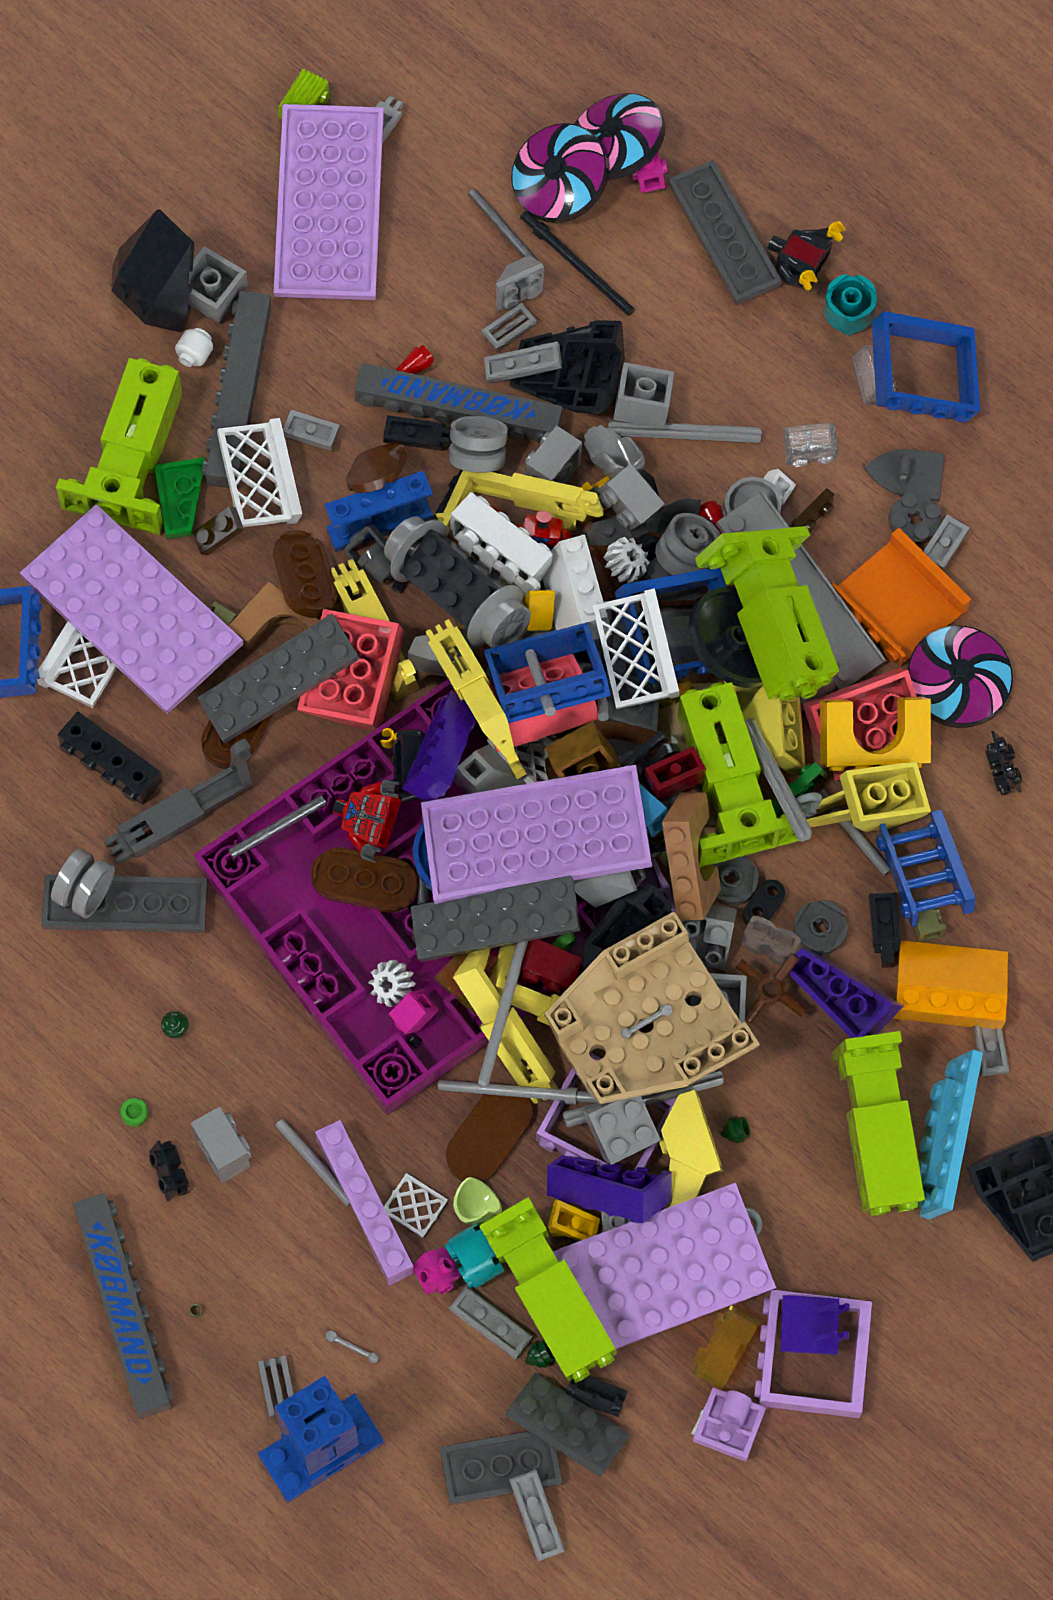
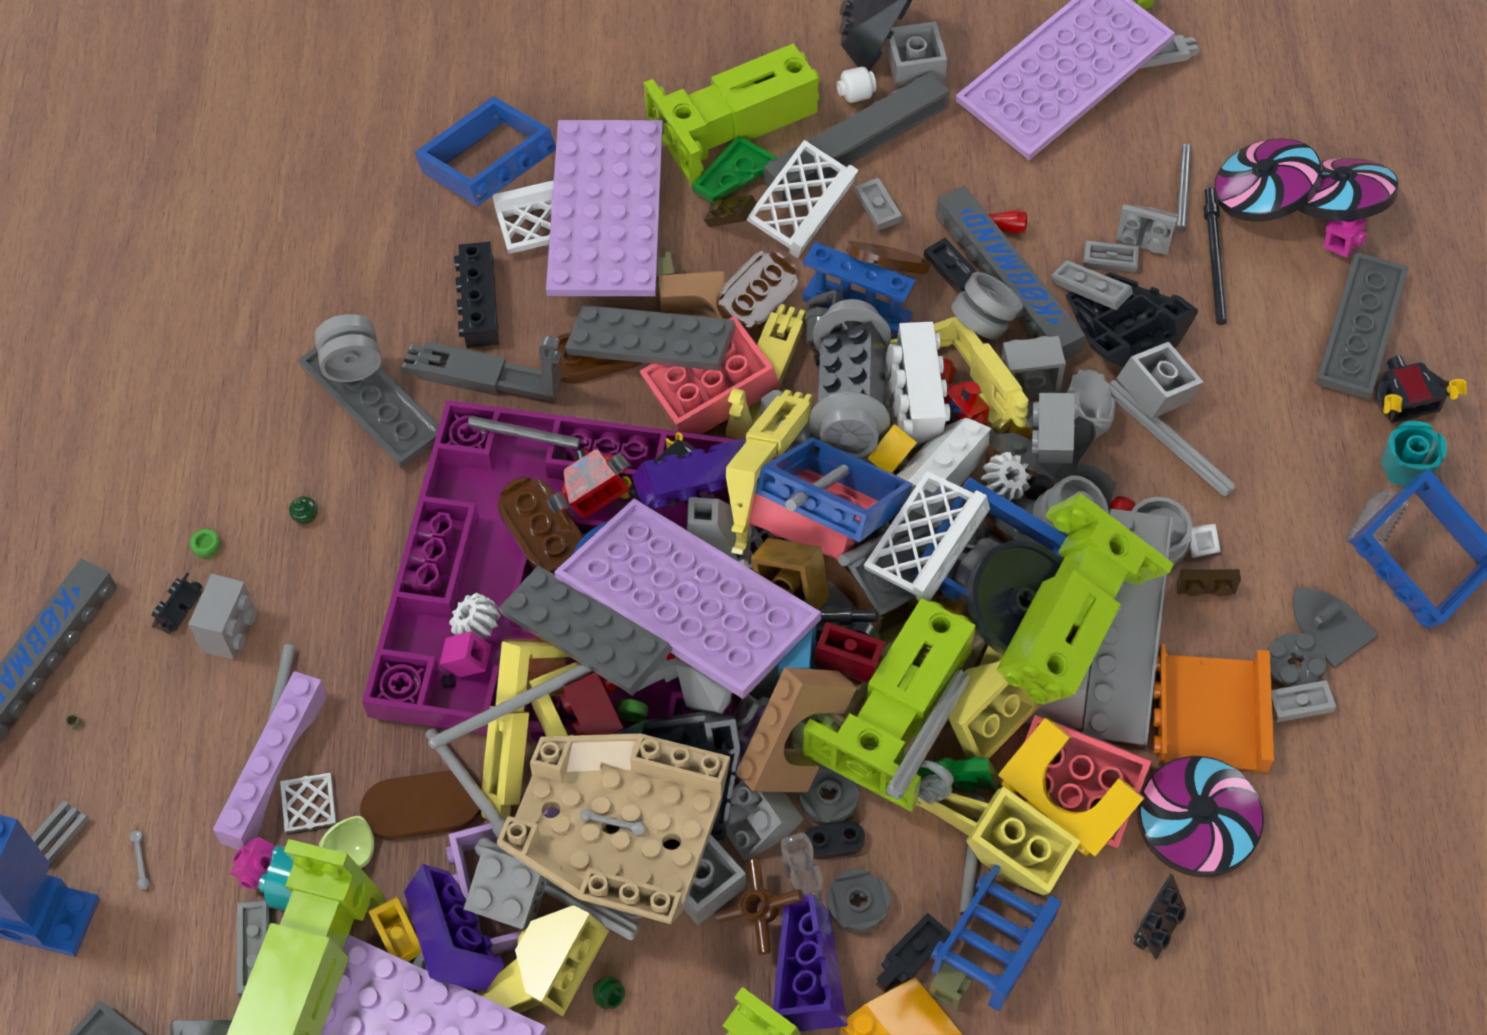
camera: 50 degrees right, 10 degrees down
(809, 444) = (1263, 529): clear brick -> none

